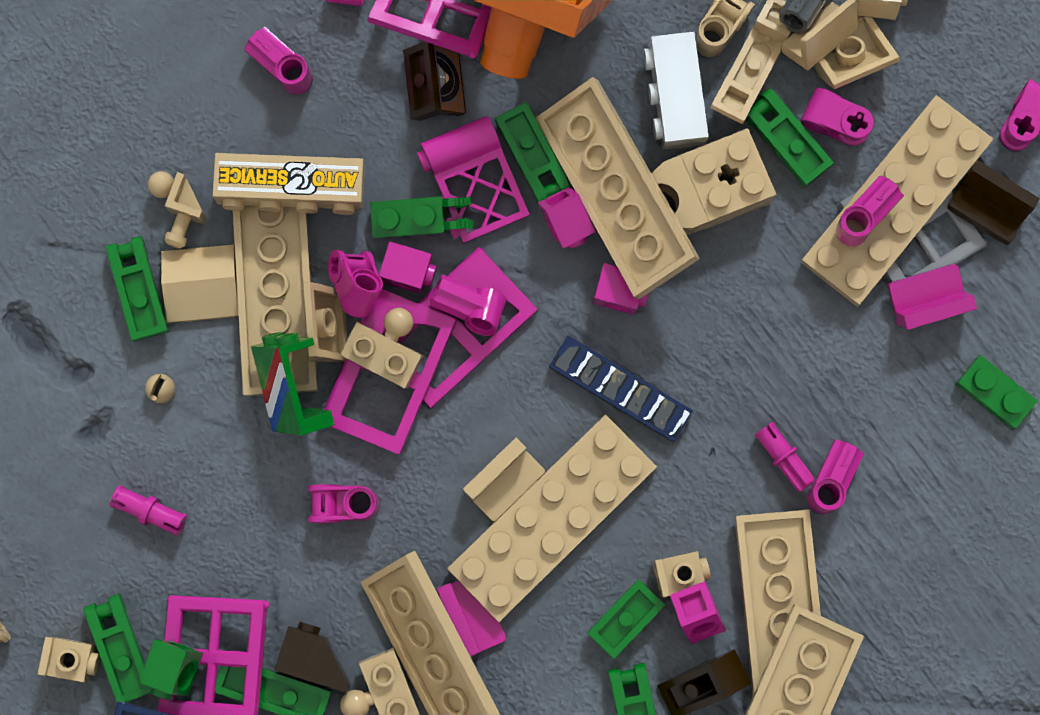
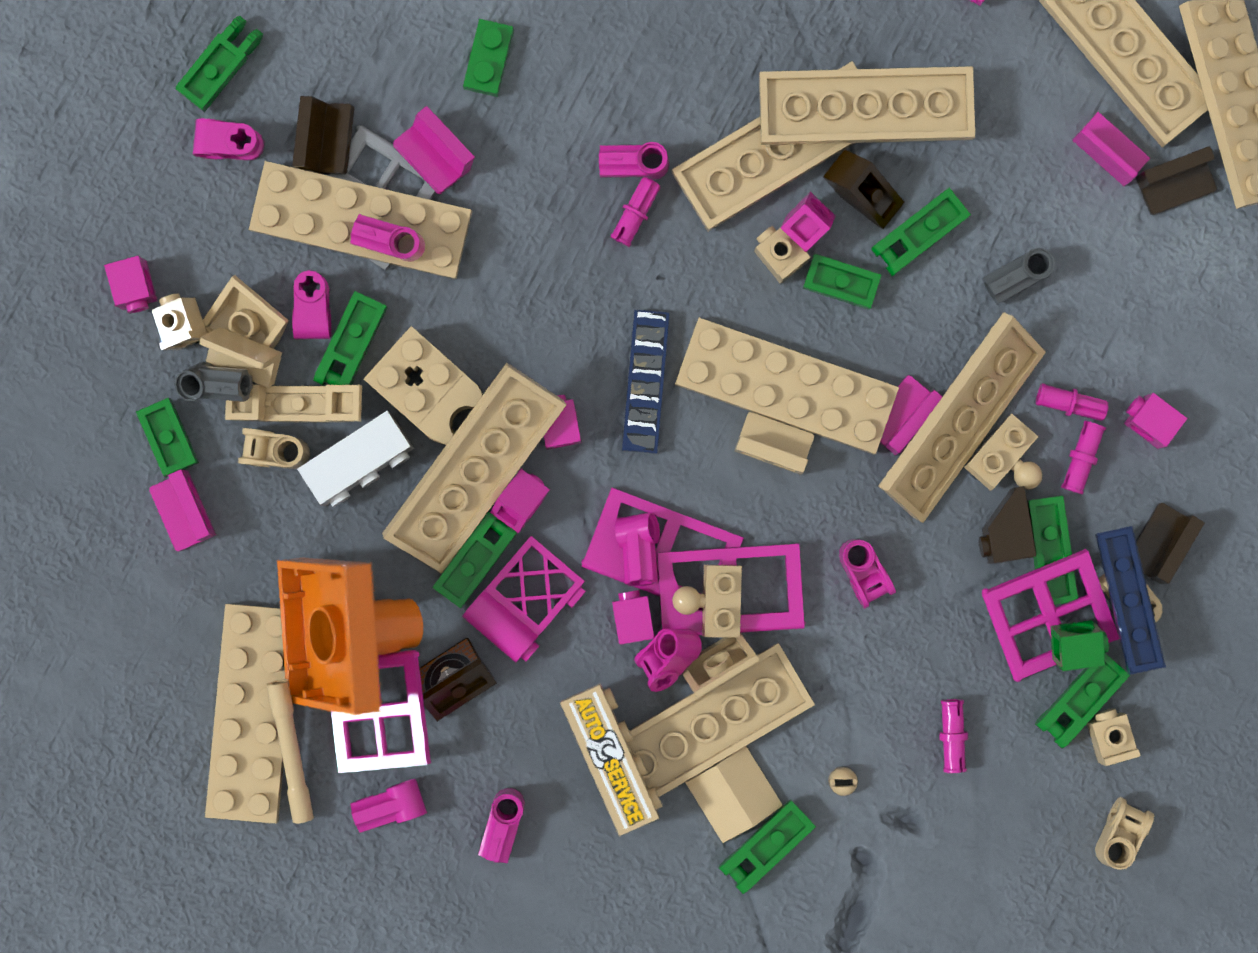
camera: 110 degrees left, 5 degrees up
(180, 202) = (671, 847): tan piece -> none
(280, 389) = (814, 657): green panel -> none
(416, 216) = (582, 632): green hinge -> none

